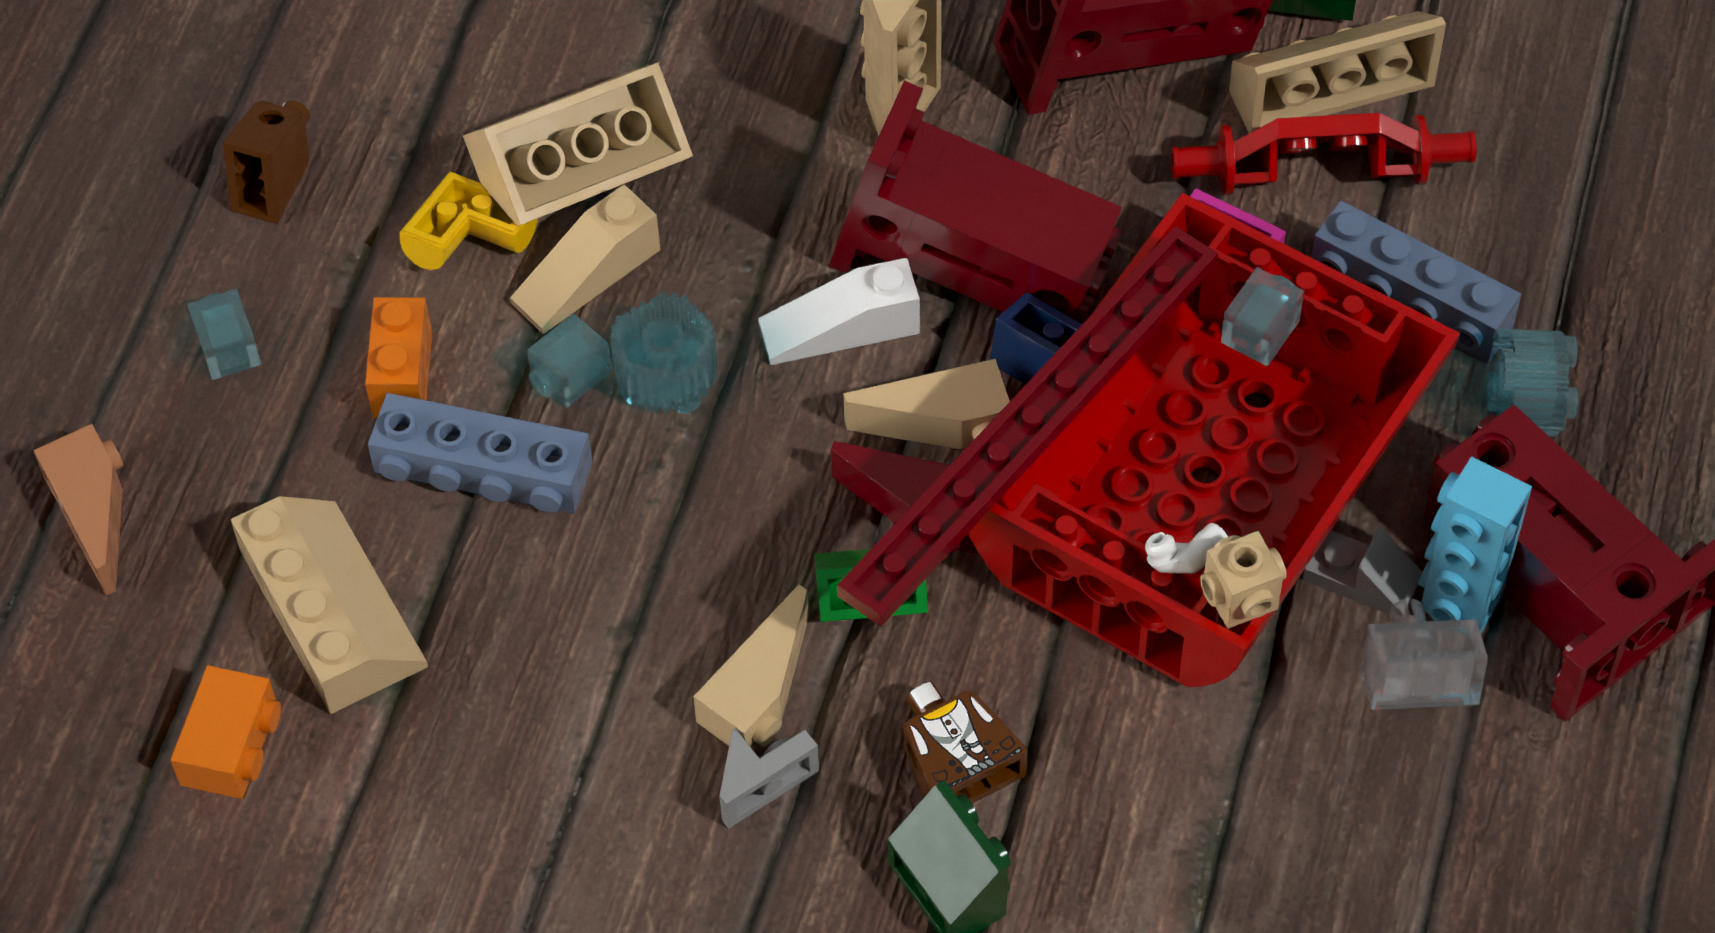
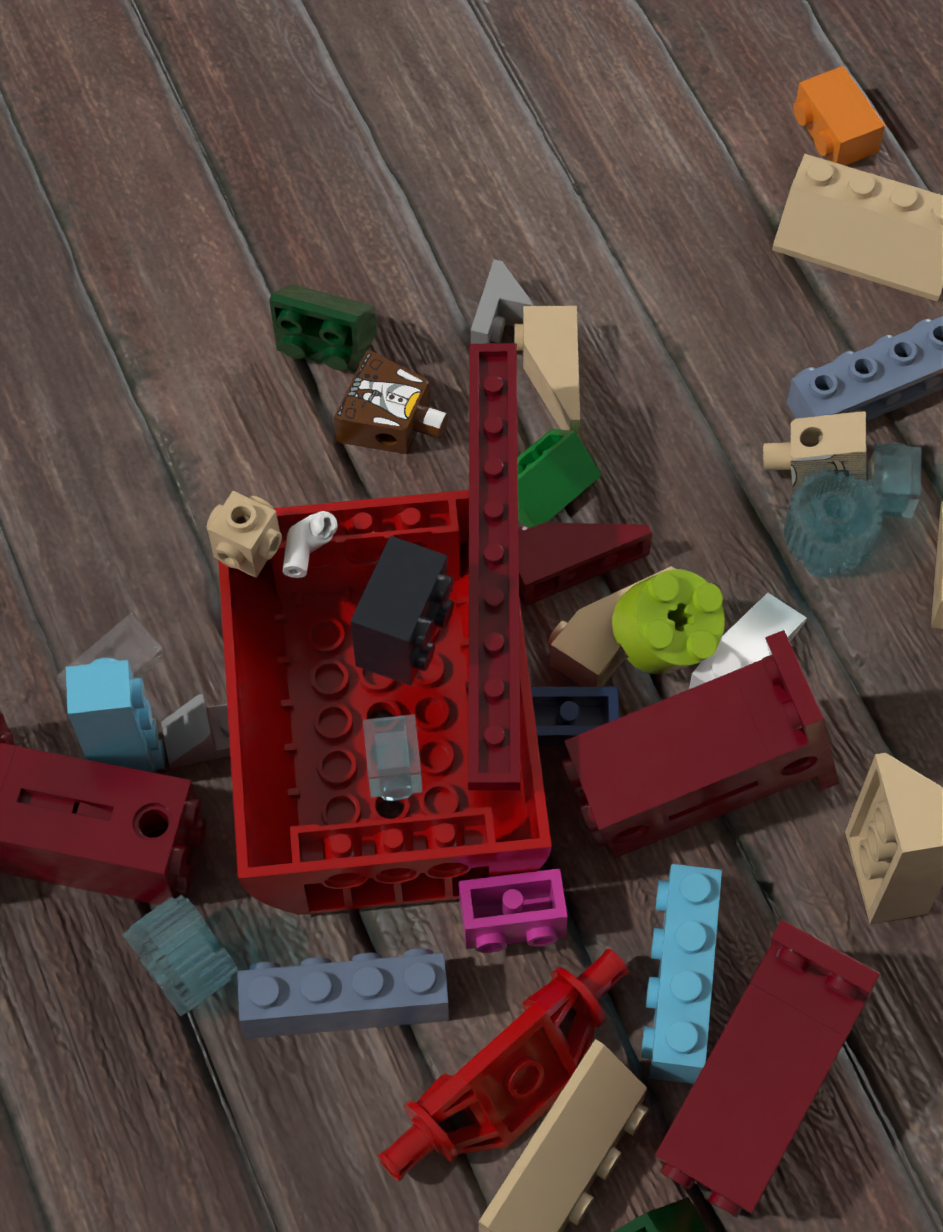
camera: 140 degrees right, 5 degrees up
(612, 407) = (821, 442): none -> tan torso
(902, 339) = (669, 621): none -> lime brick
(1130, 120) = (685, 973): none -> medium azure brick
(1165, 398) = (402, 611): none -> black brick

